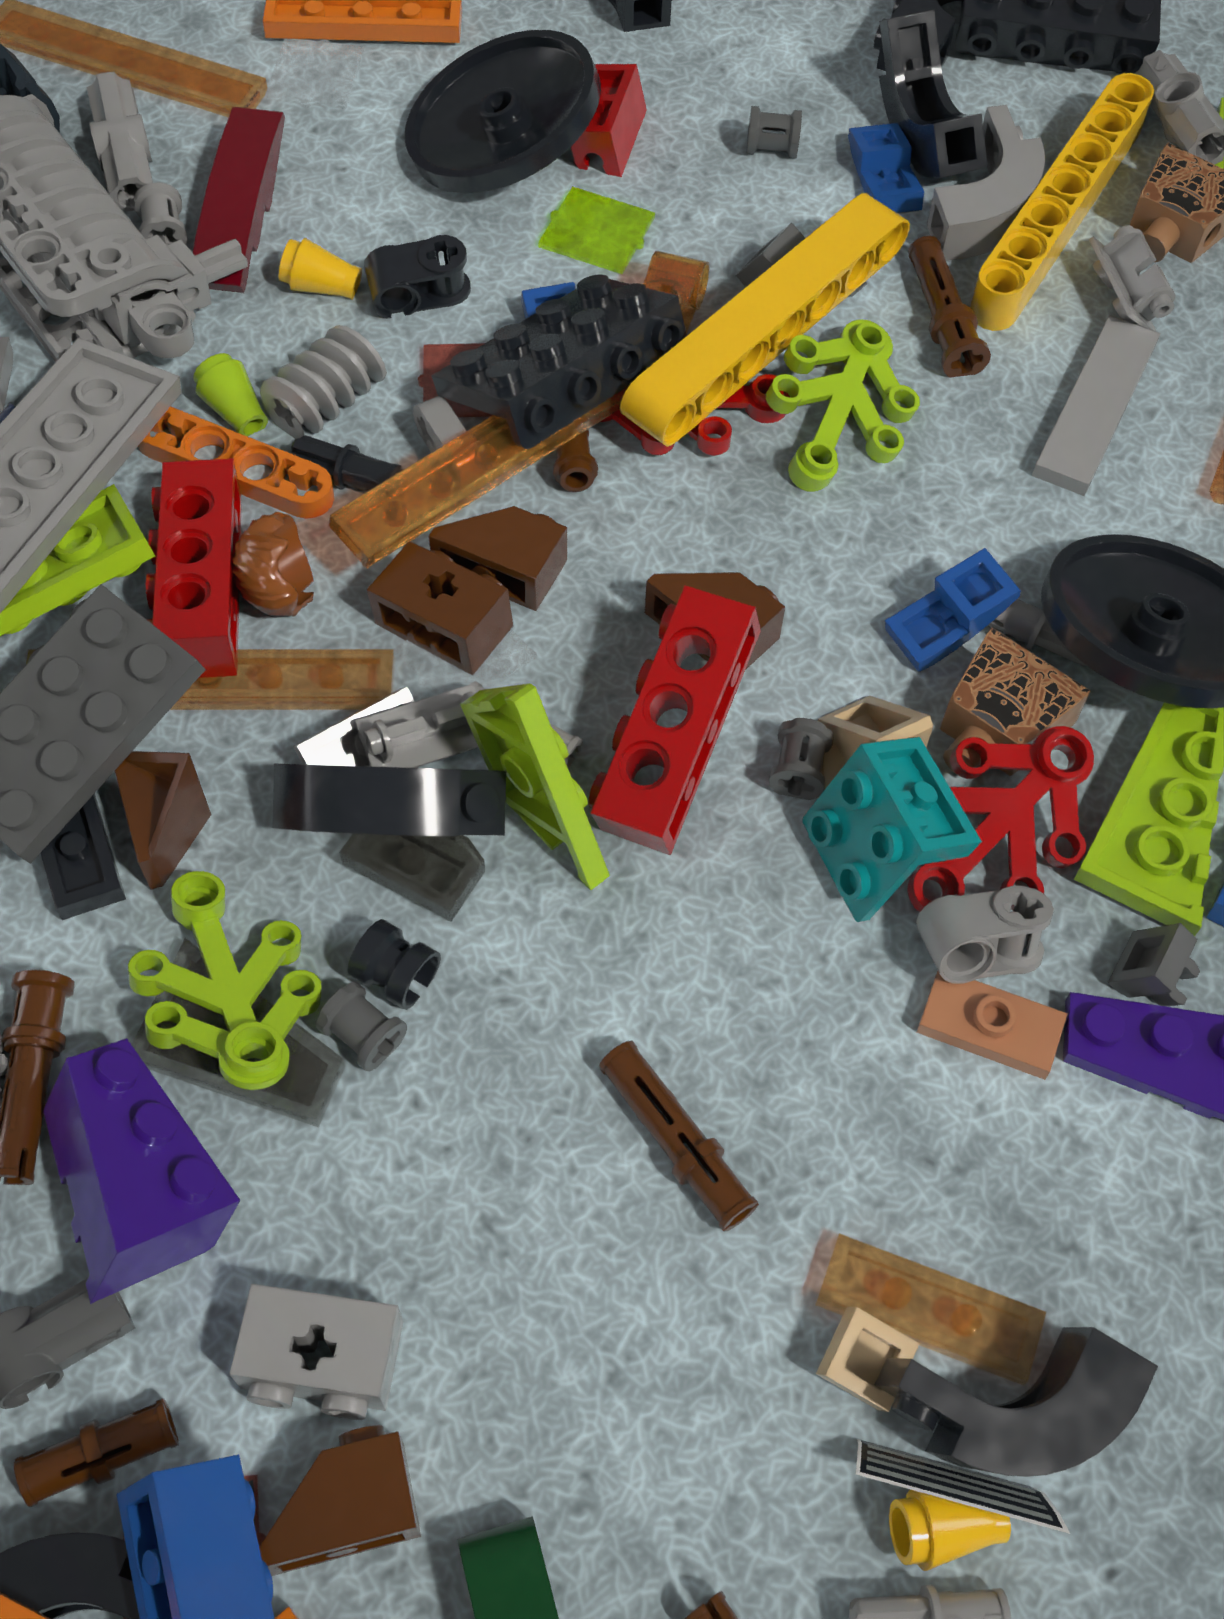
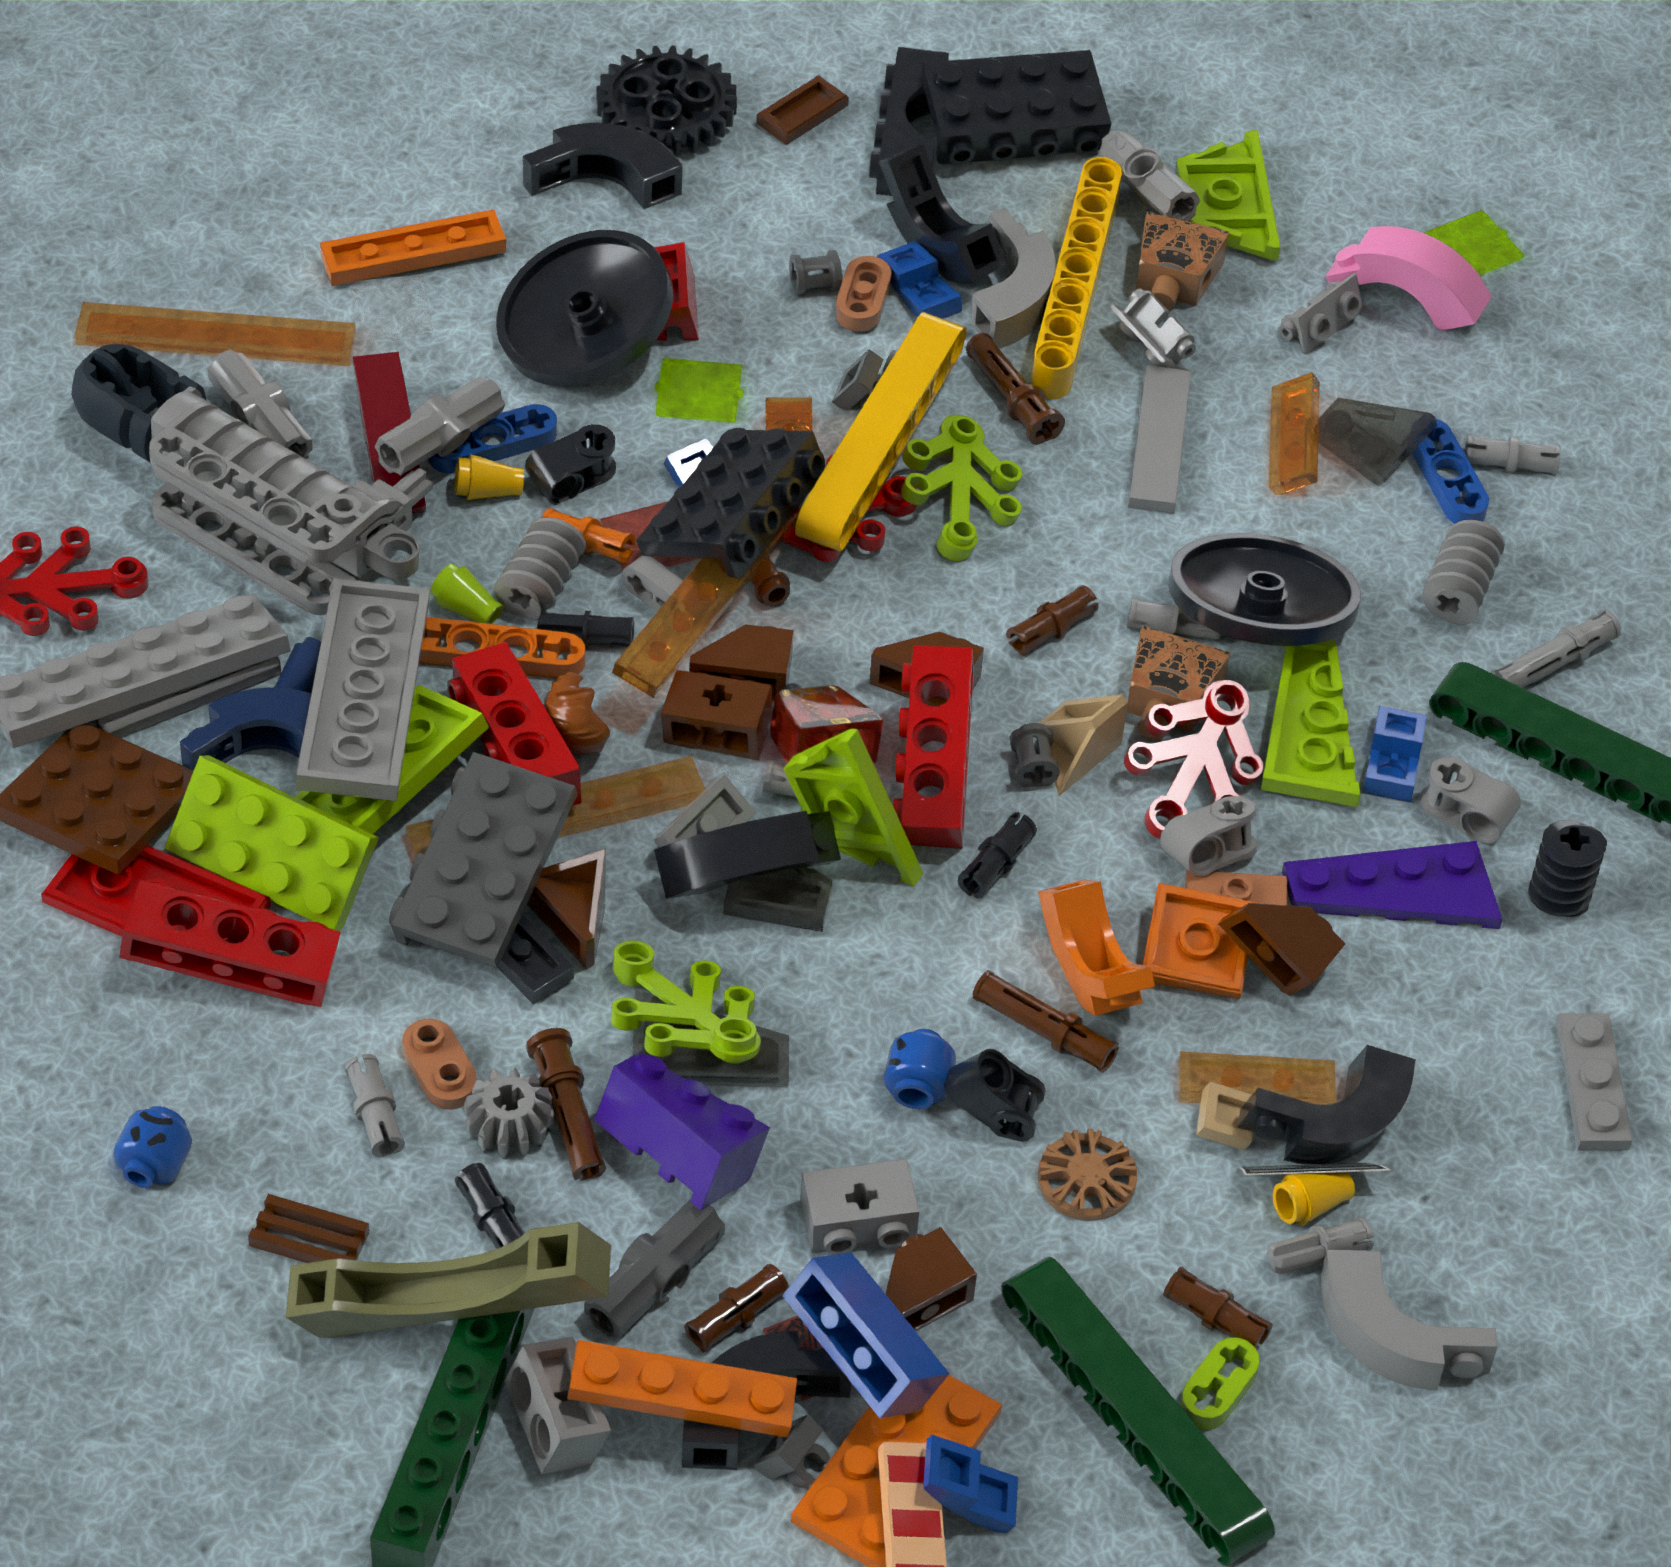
camera: 20 degrees left, 10 degrees down
(159, 216) = (326, 454): light grey bush -> none
(280, 198) = (439, 425): none -> light grey piece
(335, 217) = (503, 425): none -> blue beam
(361, 1025) = (793, 1011): dark grey bush -> none
(392, 963) = (793, 965): black wheel -> none
(399, 359) = (598, 537): none -> orange pin
(418, 731) = (752, 798): light grey hinge -> none
(481, 1162) = (918, 1068): none -> blue head
(558, 652) = (818, 713): none -> clear red torso
(574, 1240) = (996, 1091): none -> black piece
(648, 1387) = (1087, 1175): none -> medium nougat wheel
(705, 879) = (997, 855): none -> black pin
(770, 1054) = (1088, 949): none -> orange arch
(817, 165) = (859, 301): none -> nougat plate
(885, 591) = (1052, 620): none -> reddish brown pin
(885, 820) = (1112, 780): teal bracket -> none
(920, 1076) = (1190, 947): none -> orange plate
(952, 614) = (1109, 622): blue slope -> none
(1034, 1123) = (1284, 942): none -> reddish brown slope
(1155, 963) = (1336, 827): dark grey tile -> none

